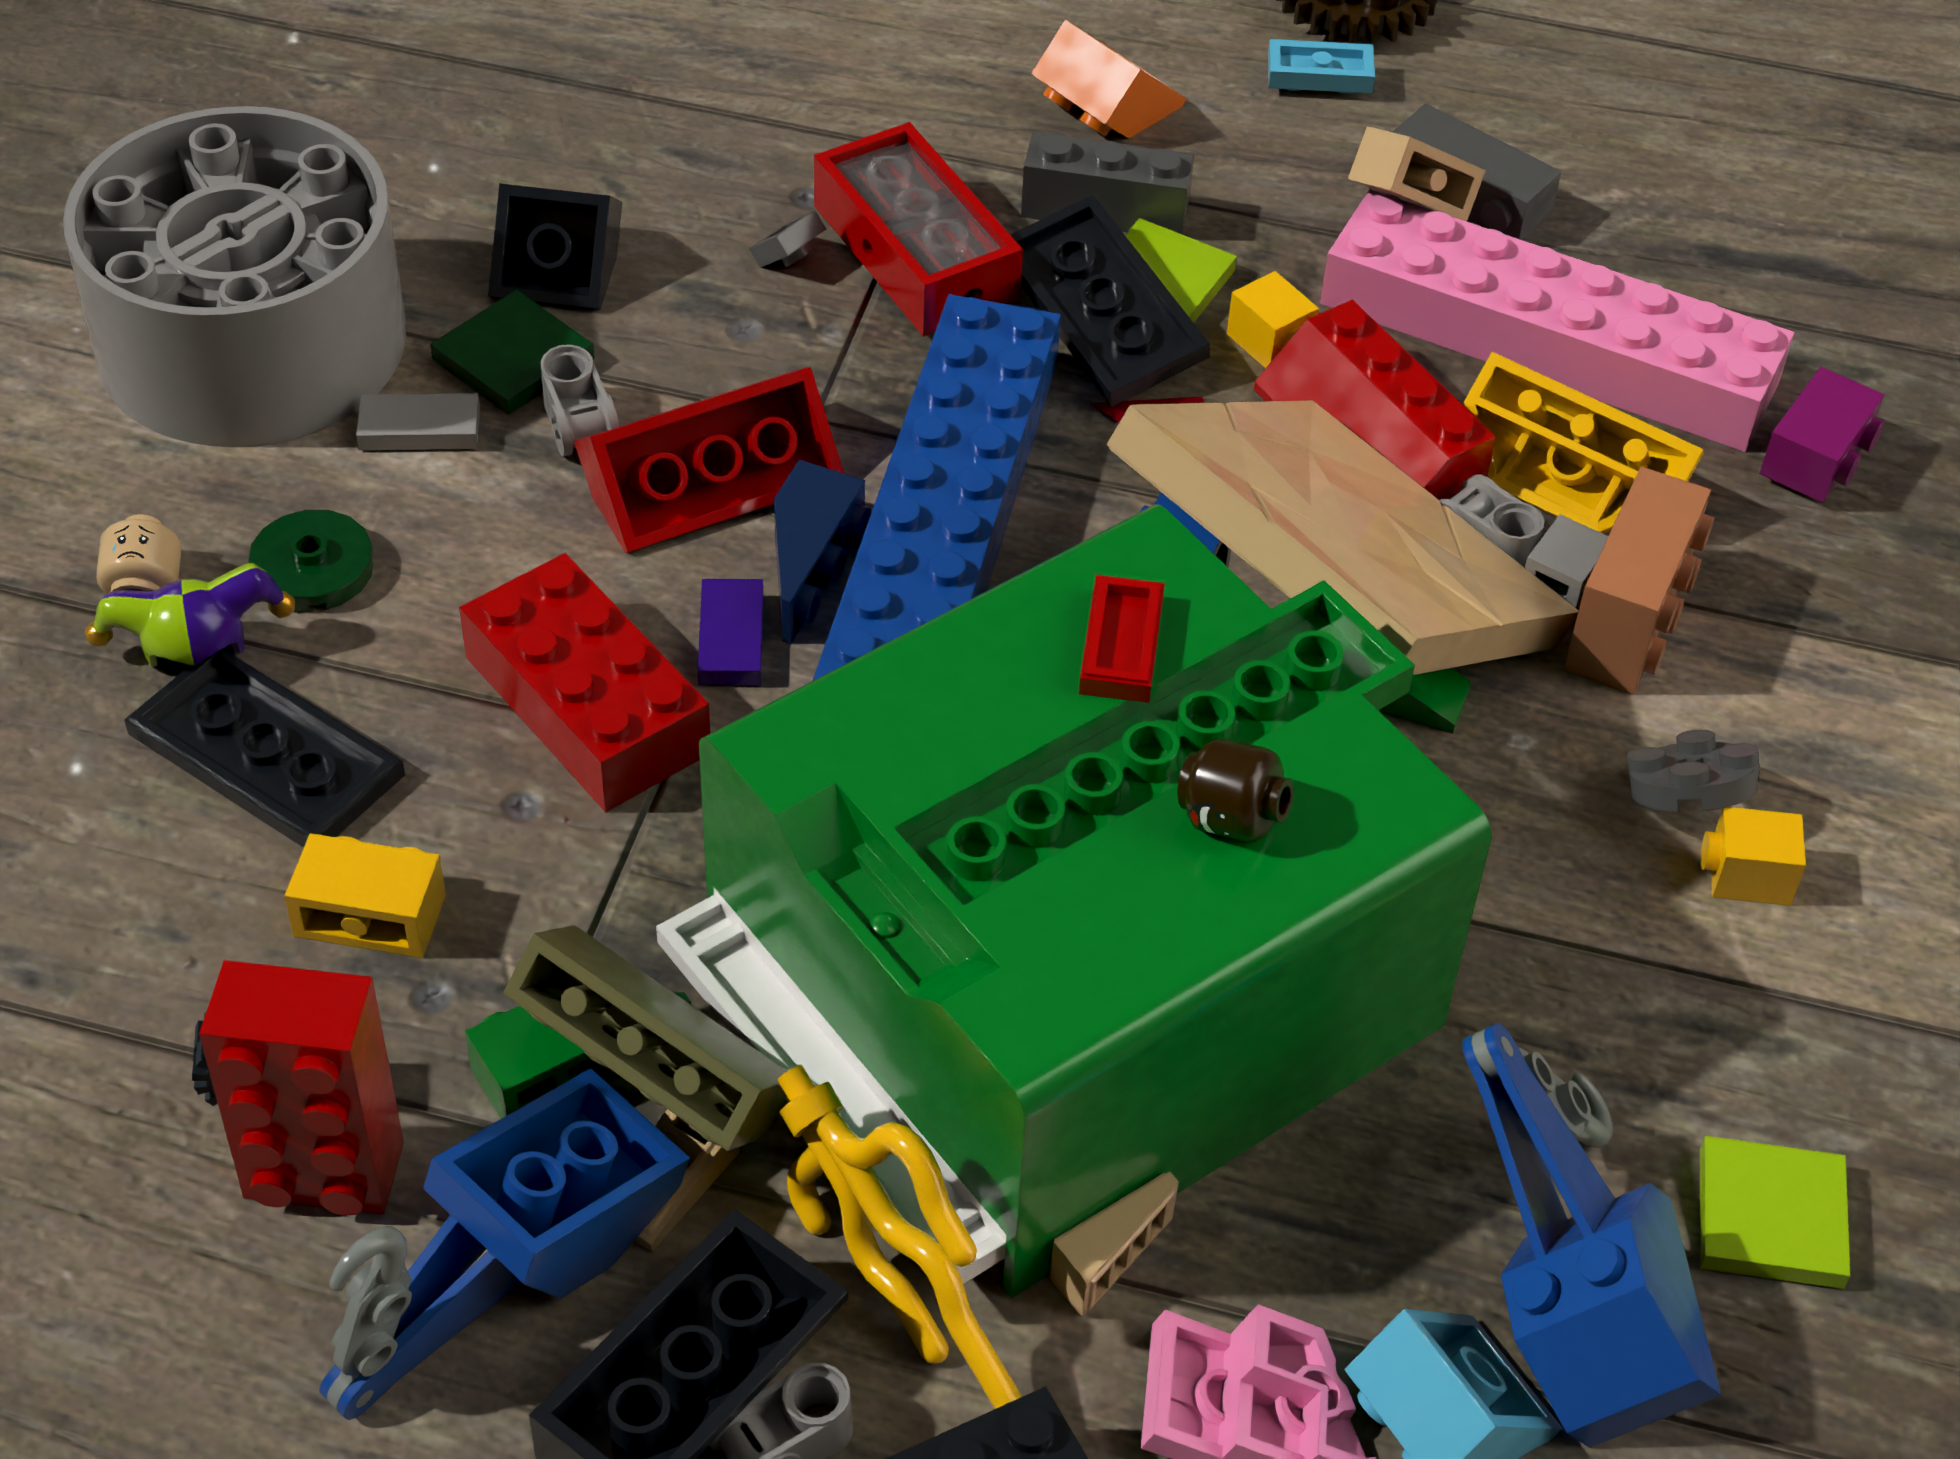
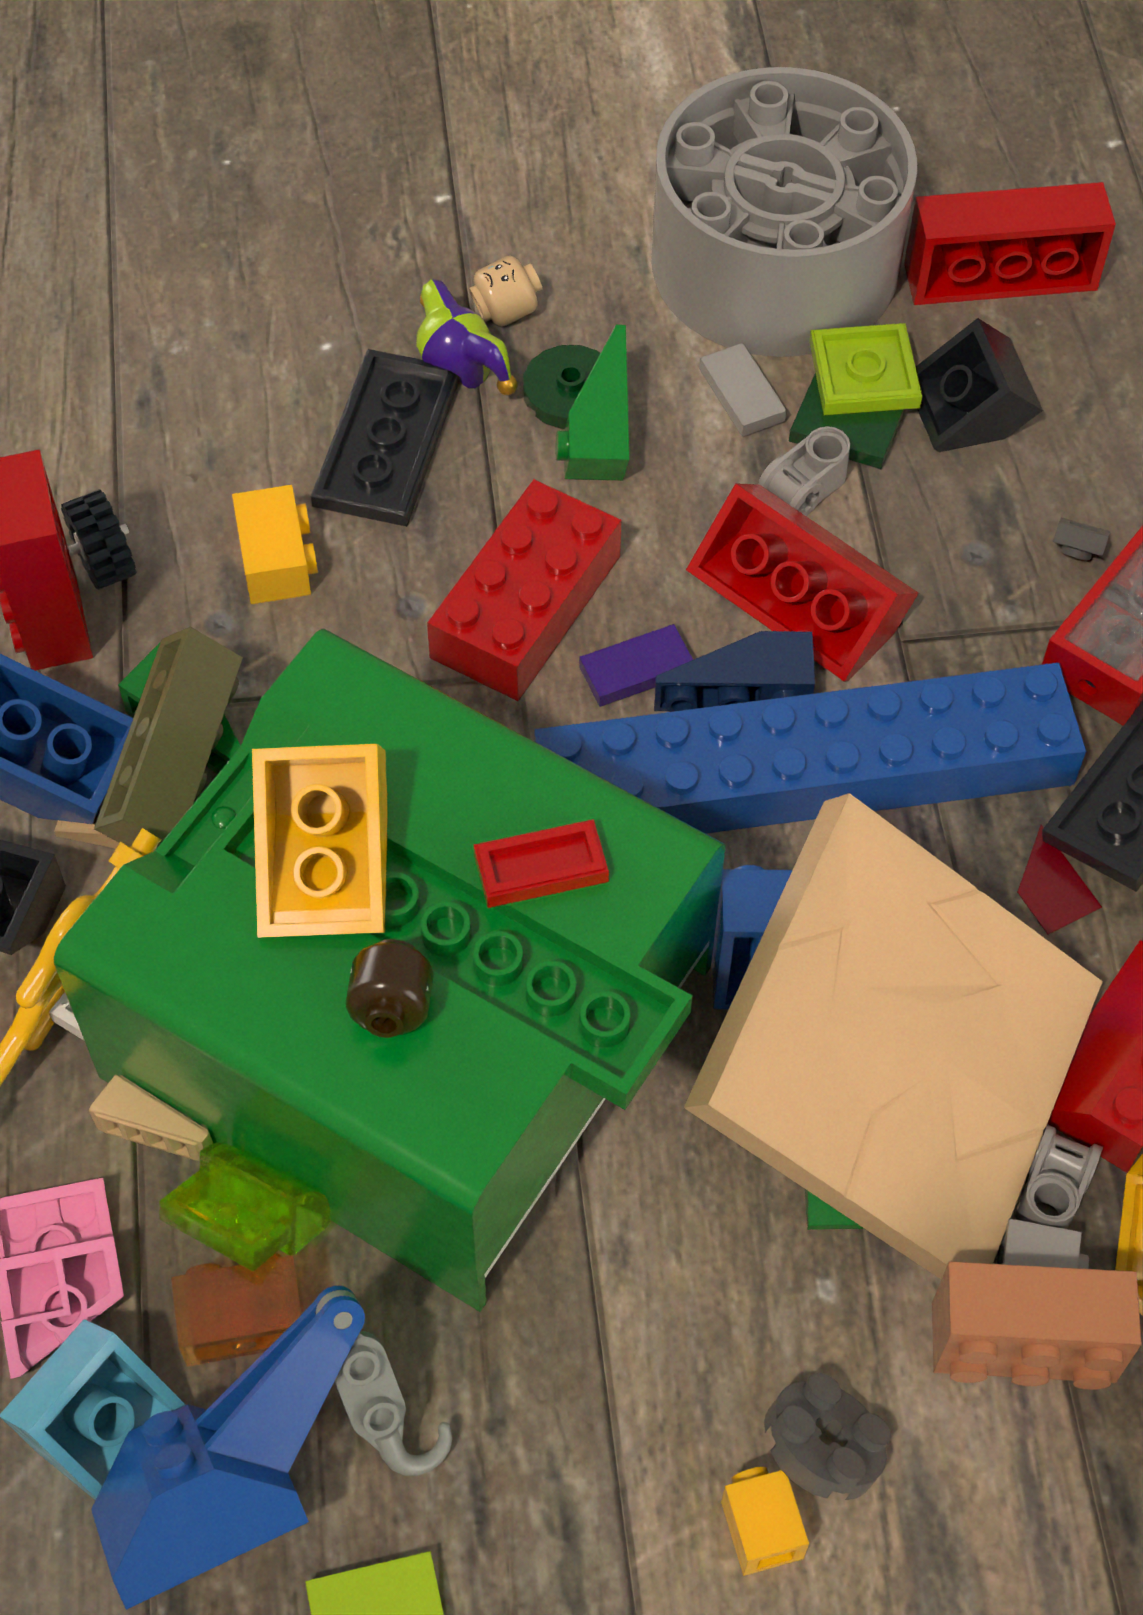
camera: 70 degrees right, 10 degrees up
(390, 531) = (597, 424): none -> green slope
(414, 117) = (1008, 243): none -> red brick
(472, 310) = (865, 369): none -> lime tile
(1014, 793) = (320, 839): none -> yellow slope
(1280, 1159) = (245, 1207): none -> clear neon green brick
(1387, 1215) = (234, 1309): none -> clear orange brick

